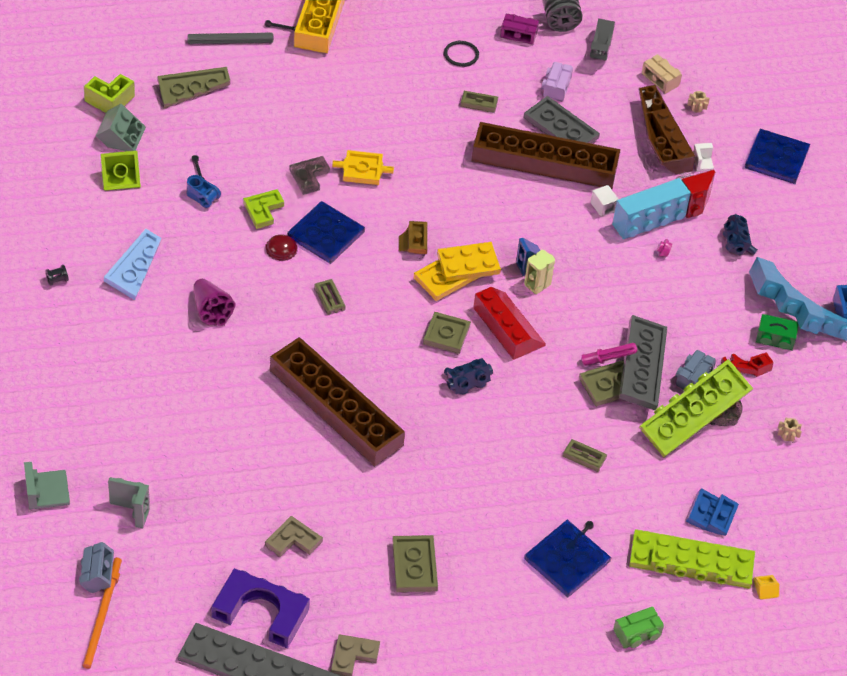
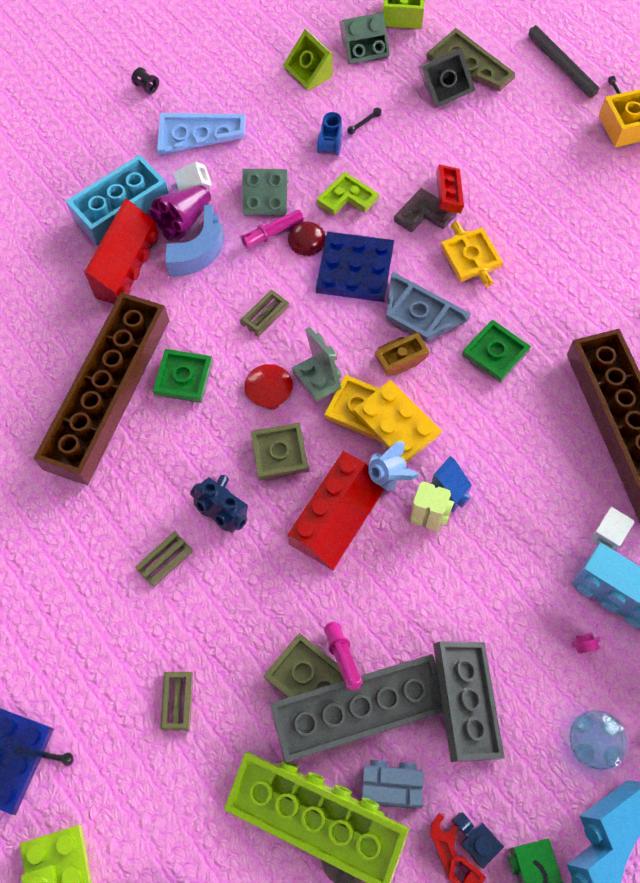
camera: 70 degrees right, 15 degrees up
(174, 333) = (99, 203): none -> medium azure brick
(182, 284) = (191, 176): none -> white panel
(201, 103) = (447, 77): none -> dark grey slope
(225, 248) = (264, 191): none -> sand green bracket
(227, 350) = (121, 253): none -> red slope
(253, 304) = (199, 252): none -> medium blue arch
(262, 266) = (262, 233): none -> dark pink axle
(304, 150) = (449, 189): none -> red plate
(353, 359) = (183, 375): none -> green plate
(387, 215) = (421, 310): none -> sand blue wing
(391, 319) = (268, 386): none -> red dish
(402, 279) = (319, 373): none -> sand green bracket
(446, 192) = (496, 350): none -> green plate
(480, 412) = (174, 537): none -> olive tile
(499, 274) = (390, 467): none -> light blue brick
(667, 313) = (468, 701): none -> dark grey plate
(720, 273) = (598, 740): none -> clear light blue dish
(744, 350) = (479, 841): none -> dark blue plate

